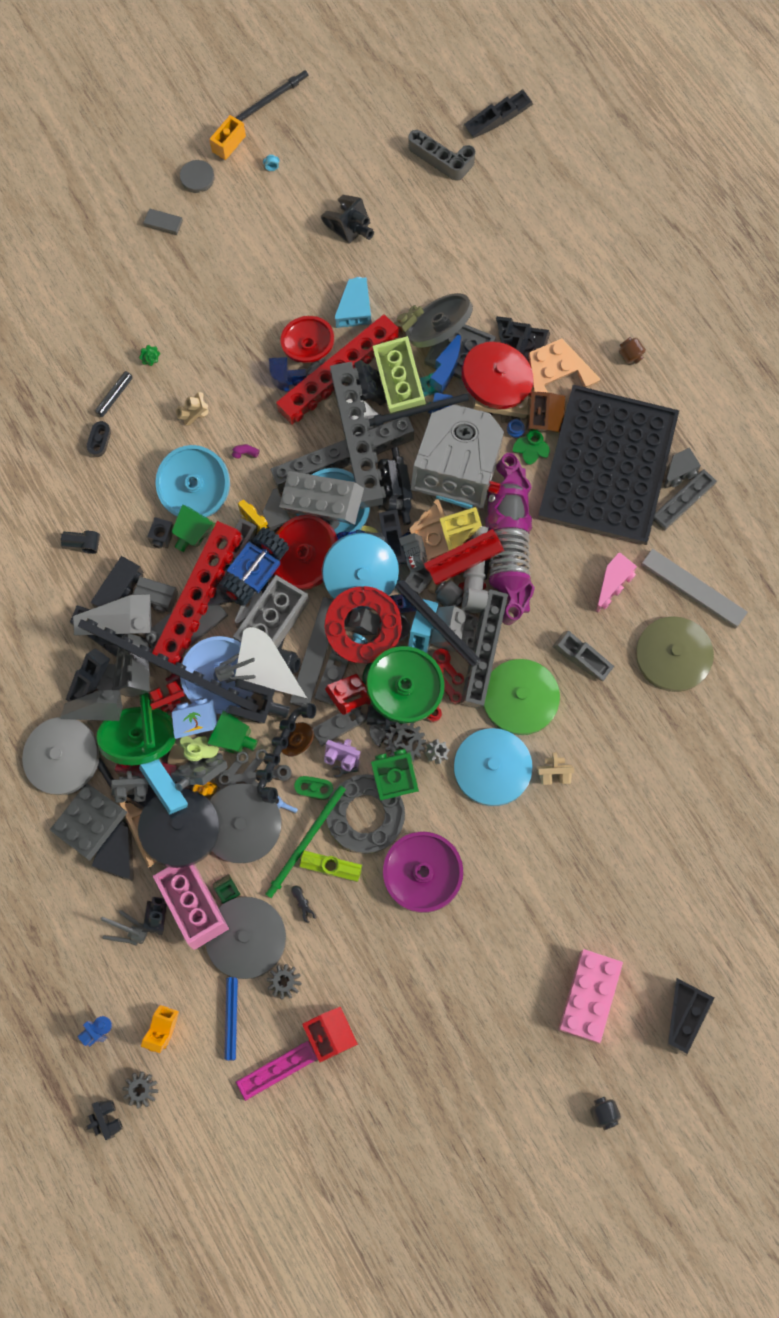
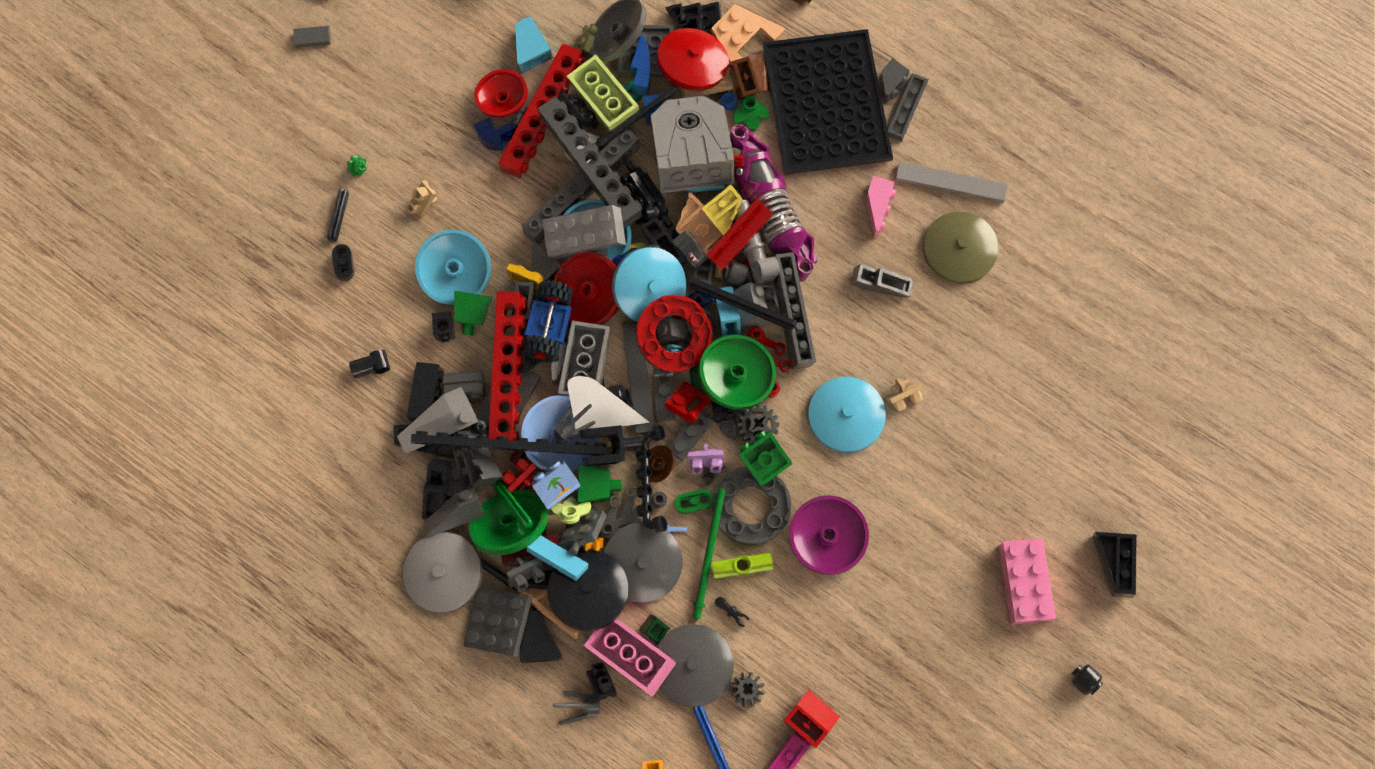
camera: 25 degrees left, 0 degrees up
(245, 449) = (486, 217): magenta arm -> none
(435, 746) = (791, 421): light grey gear -> none
(521, 697) = (844, 341): bright green dish -> none

